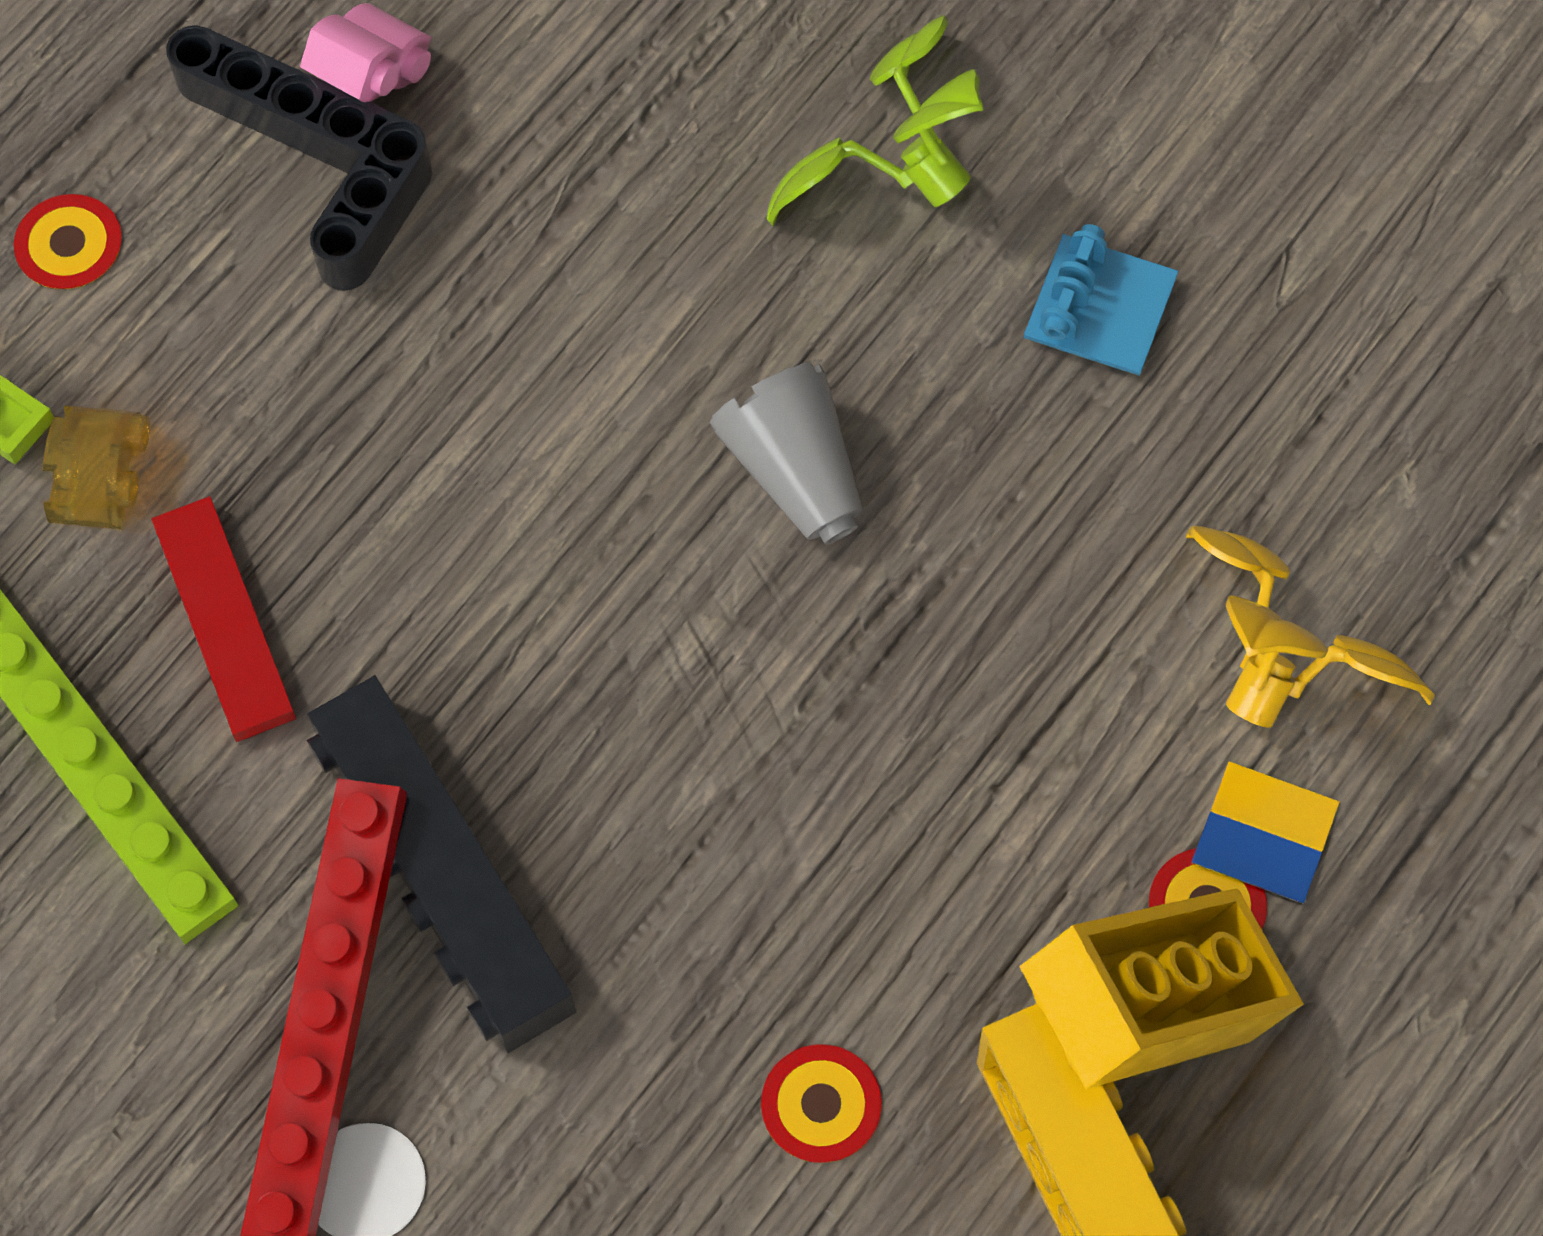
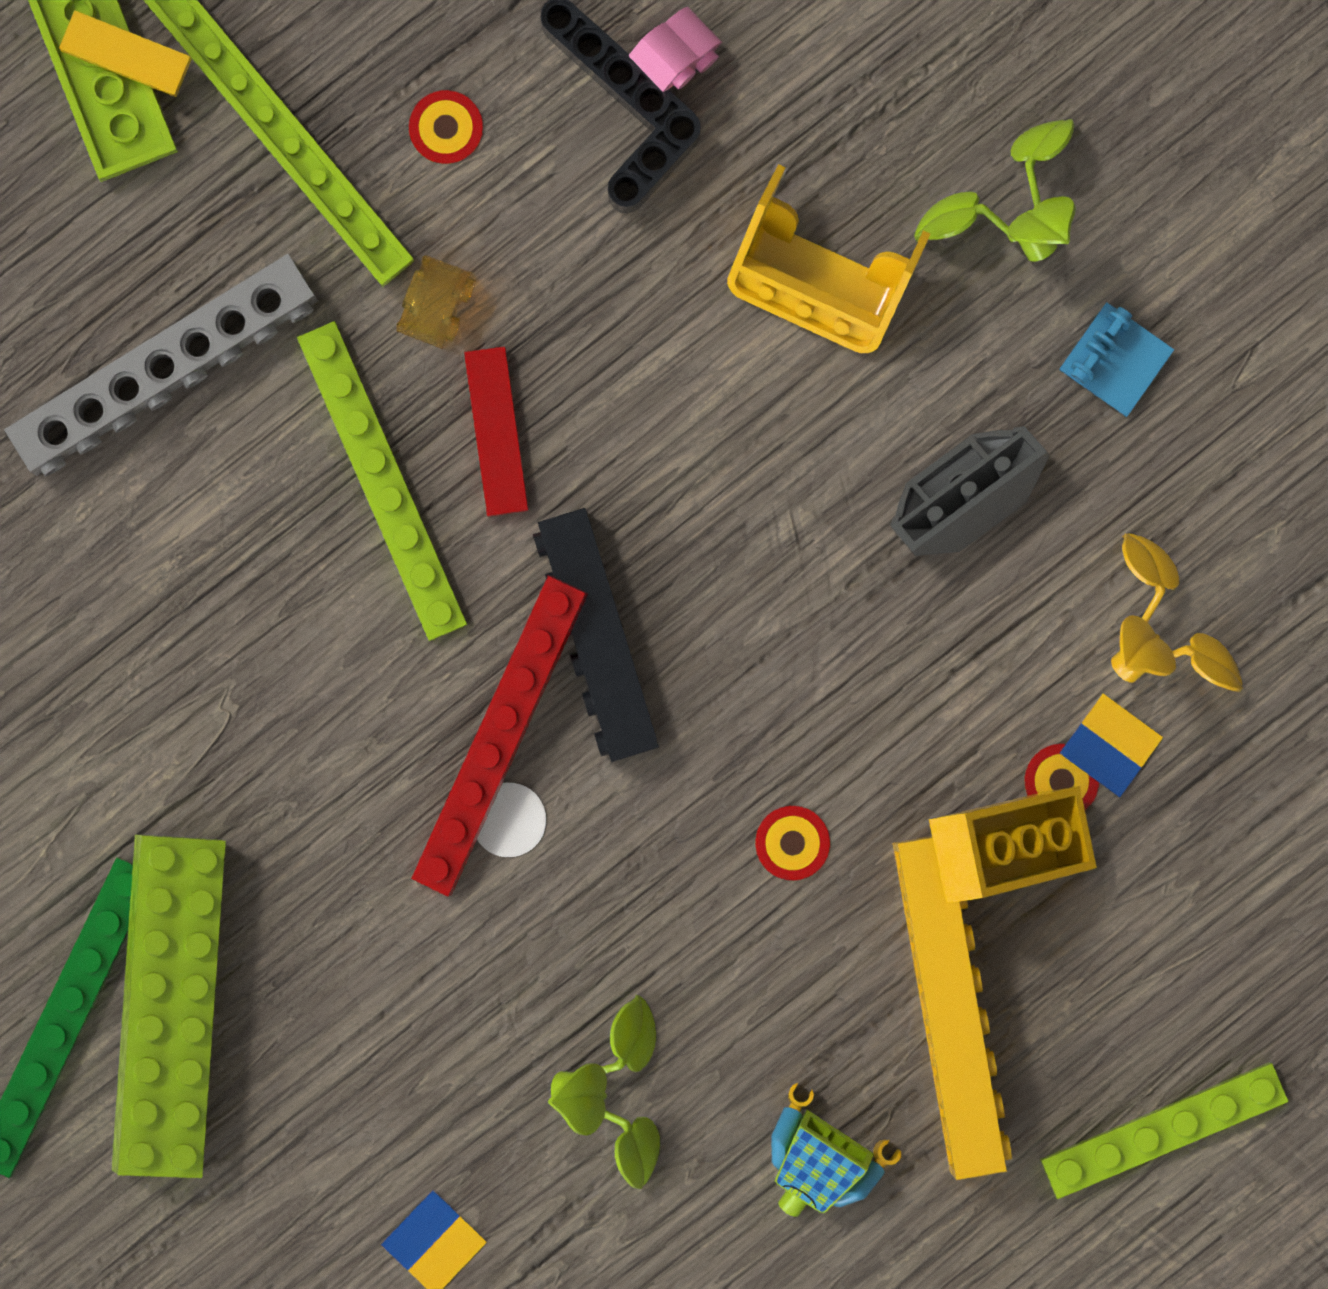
camera: 10 degrees right, 20 degrees up
(634, 311) = (815, 284): none -> yellow windscreen
(795, 450) = (888, 420): light grey cone -> none
(947, 516) = (968, 491): none -> dark grey wedge

